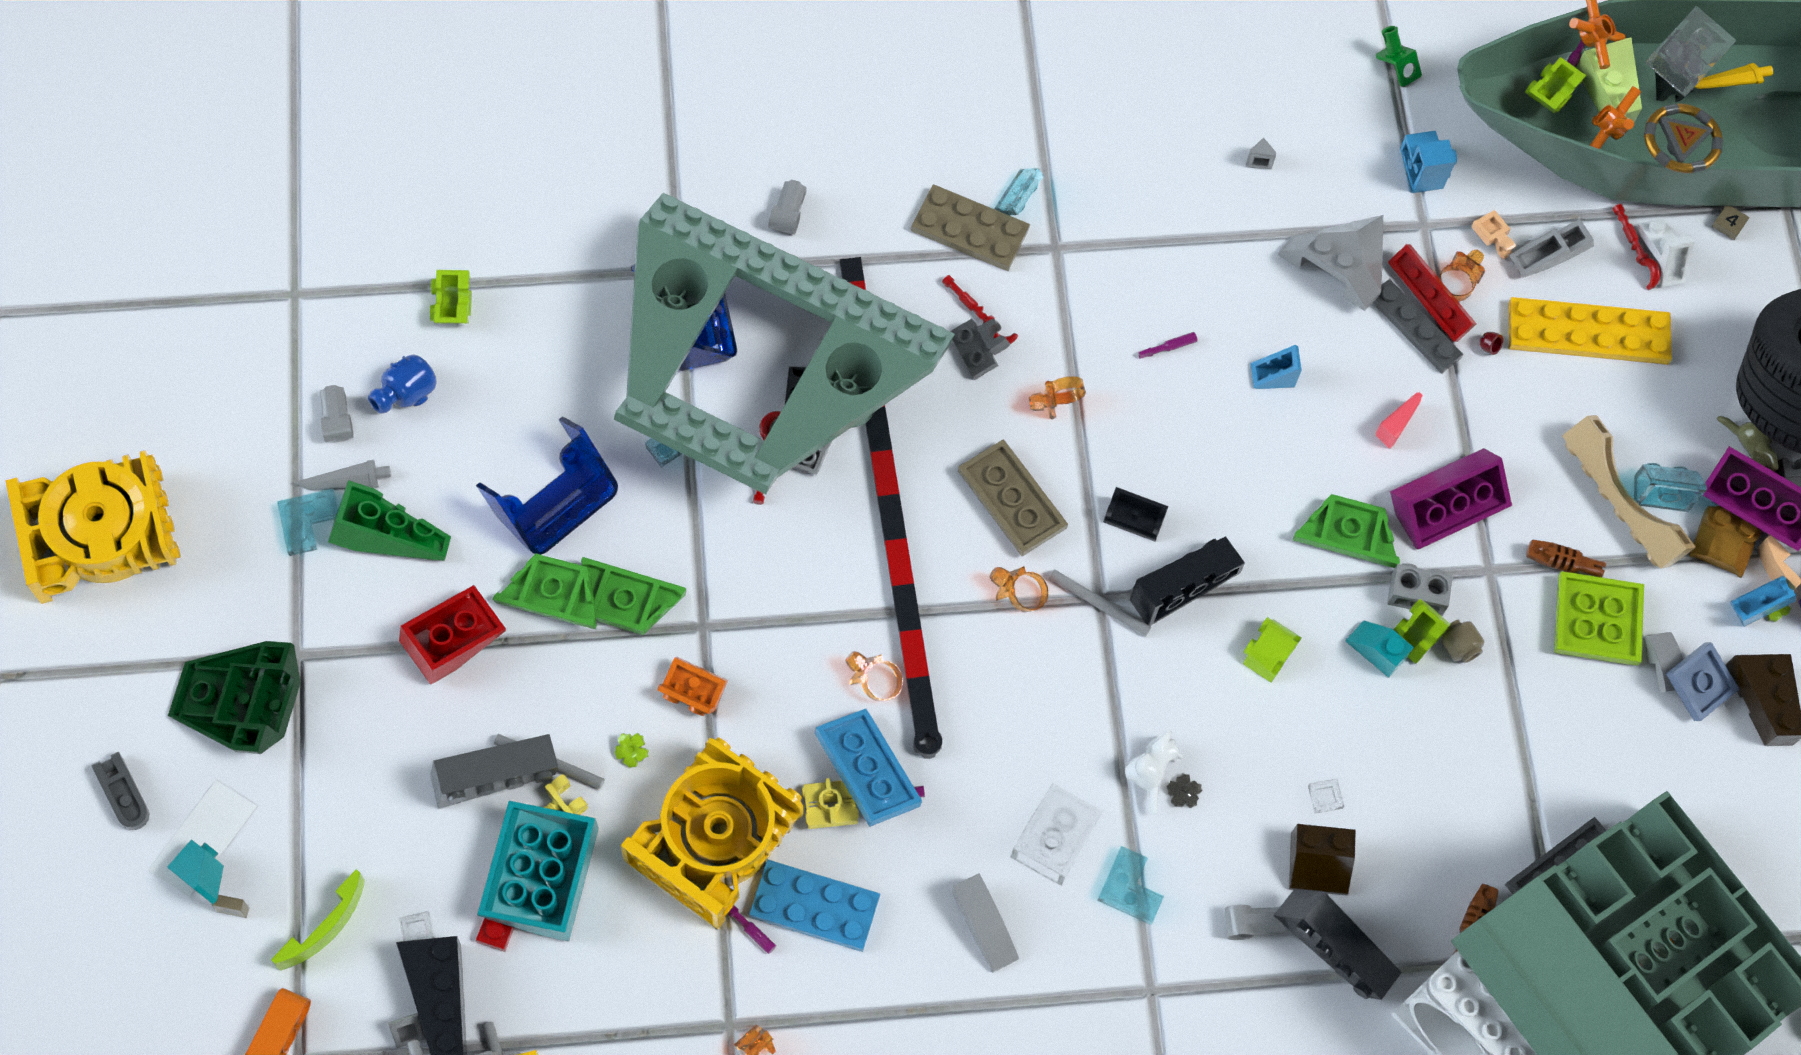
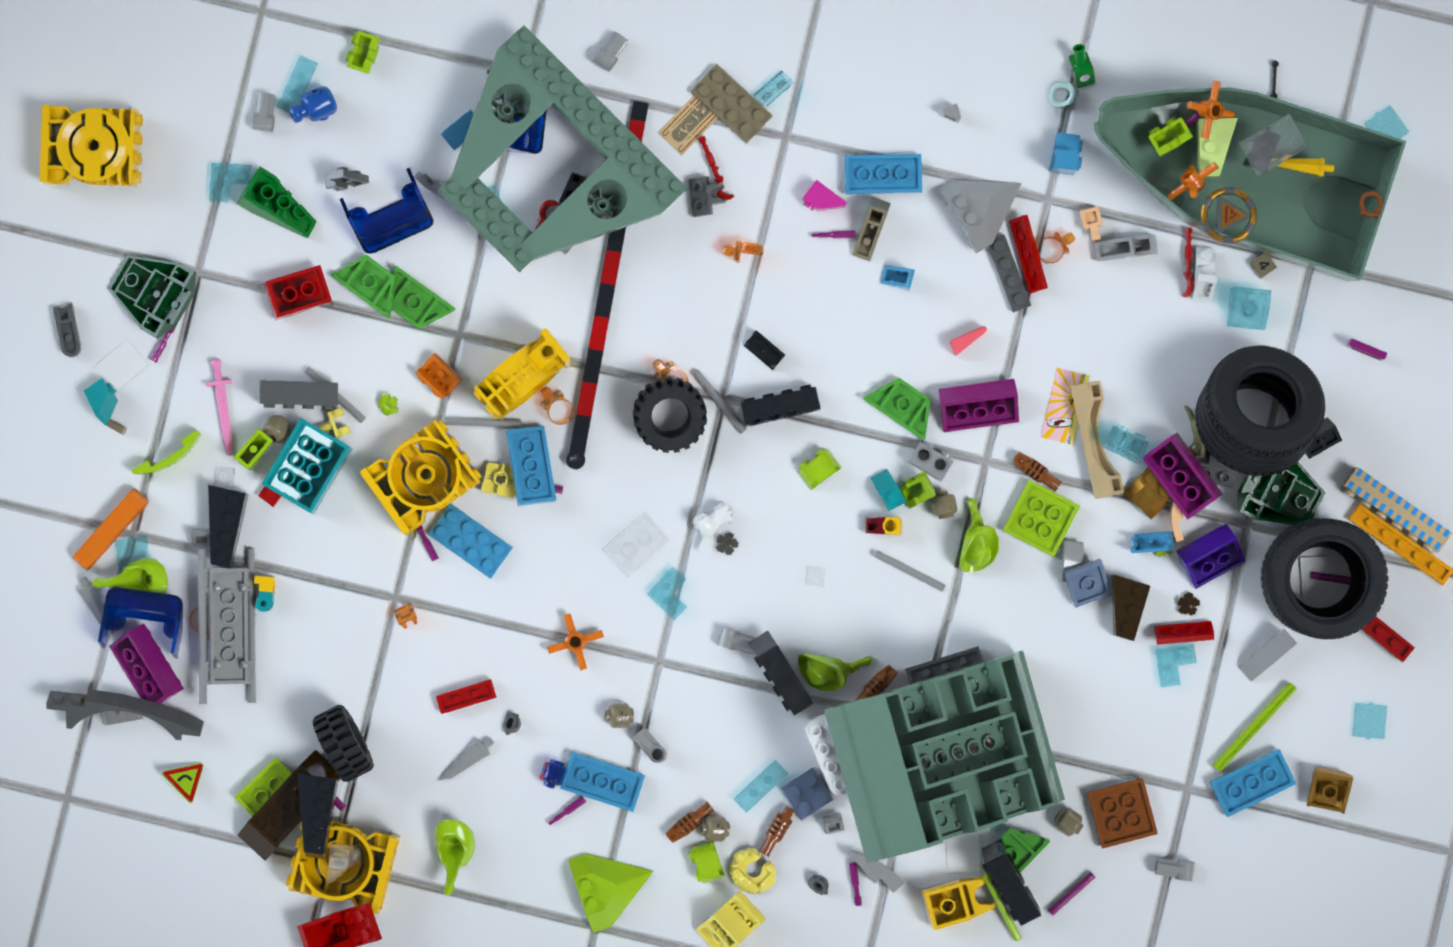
camera: 25 degrees right, 20 degrees up
(270, 771) = (160, 347): none -> magenta piece
(362, 473) = (269, 160): light grey bar -> none
(371, 366) = (297, 83): none -> clear light blue tile
(384, 825) = (222, 404): none -> bright pink sword
(451, 871) = (254, 449): none -> lime slope
(473, 460) = (343, 177): none -> dark grey plate
(475, 833) = (276, 428): none -> dark tan head
(610, 441) = (425, 181): none -> light grey slope
(614, 361) = (457, 131): none -> dark azure hinge
(779, 732) = (483, 422): none -> light grey bar
(816, 635) = (522, 375): none -> yellow brick
(921, 271) = (687, 125): none -> sticker
(985, 922) = (570, 587): light grey slope -> none
(1011, 1007) = (584, 639): none -> orange bar
(1012, 497) = (688, 311): dark tan plate -> none
(1074, 616) = (677, 438): none -> black tyre
(1138, 303) = (822, 198): none -> dark pink slope
(1202, 252) = (883, 174): none -> dark azure plate
(1215, 322) = (871, 229): none -> dark tan slope
(1321, 858) = (794, 616): dark brown slope -> none
(1389, 86) = (1065, 85): none -> light aqua piece
(1394, 694) = (884, 525): none -> leg
(1400, 921) = (827, 672): none -> lime hat
(1453, 746) = (910, 571): none -> light grey bar
(1491, 342) = (1054, 303): dark red hinge -> none
(1536, 676) = (980, 543): none -> lime hat
(1560, 472) = (1061, 417): none -> sticker
(1589, 330) = (1127, 314): yellow plate -> none
(1739, 273) = (1248, 308): none -> clear light blue slope

